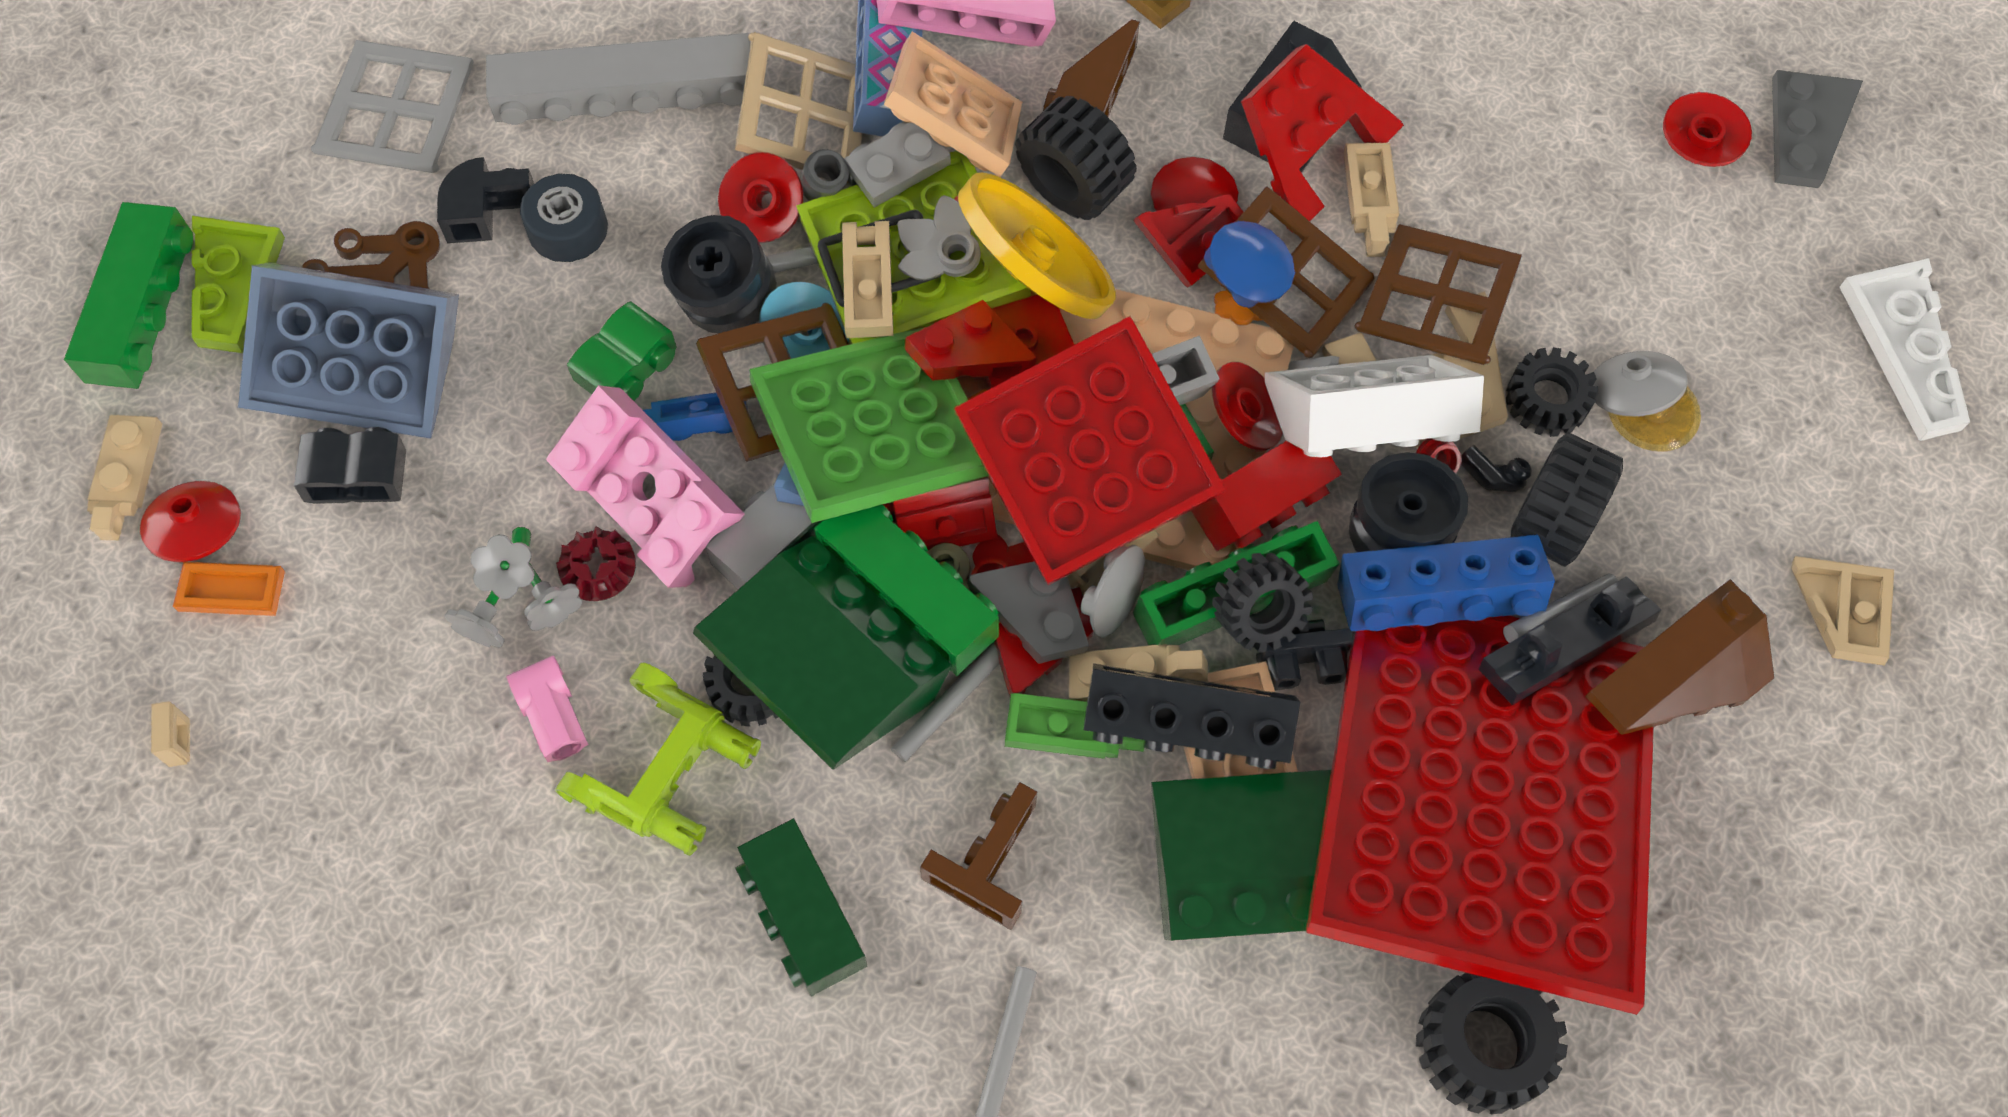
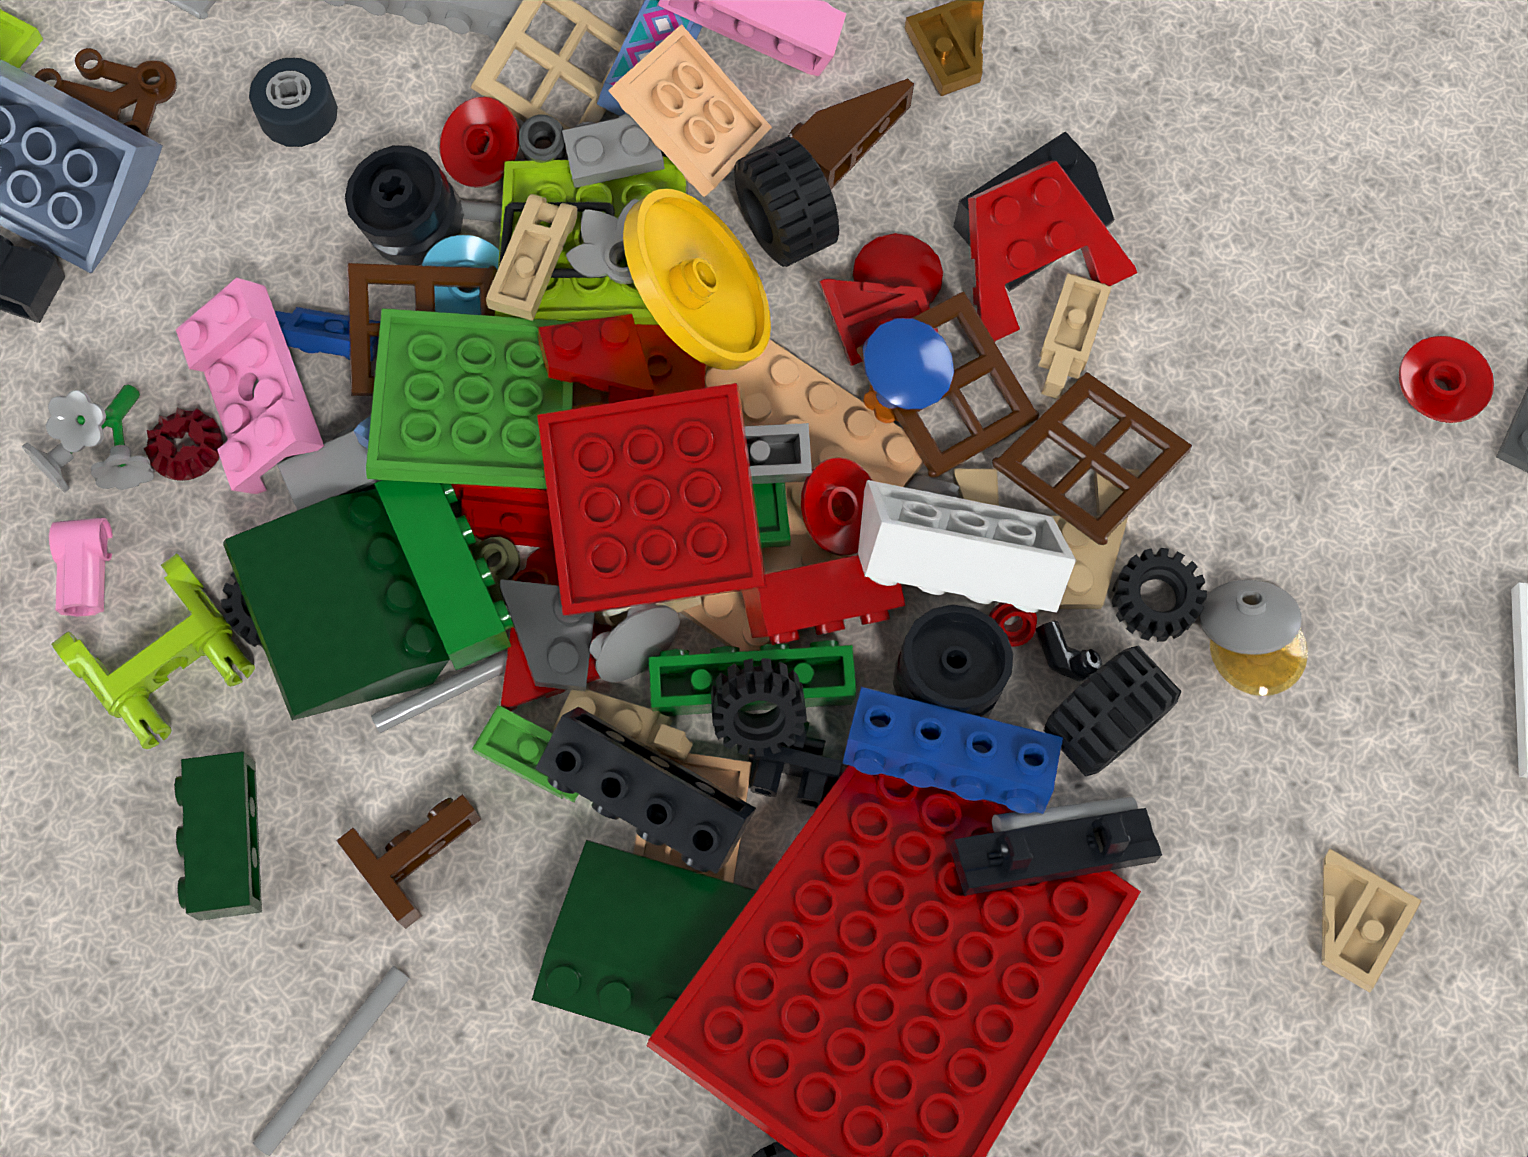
camera: 20 degrees right, 5 degrees up
(471, 195) = (217, 54): black brick -> none
(623, 352) = (289, 252): green brick -> none
(1699, 663) = (1176, 922): reddish brown wedge -> none

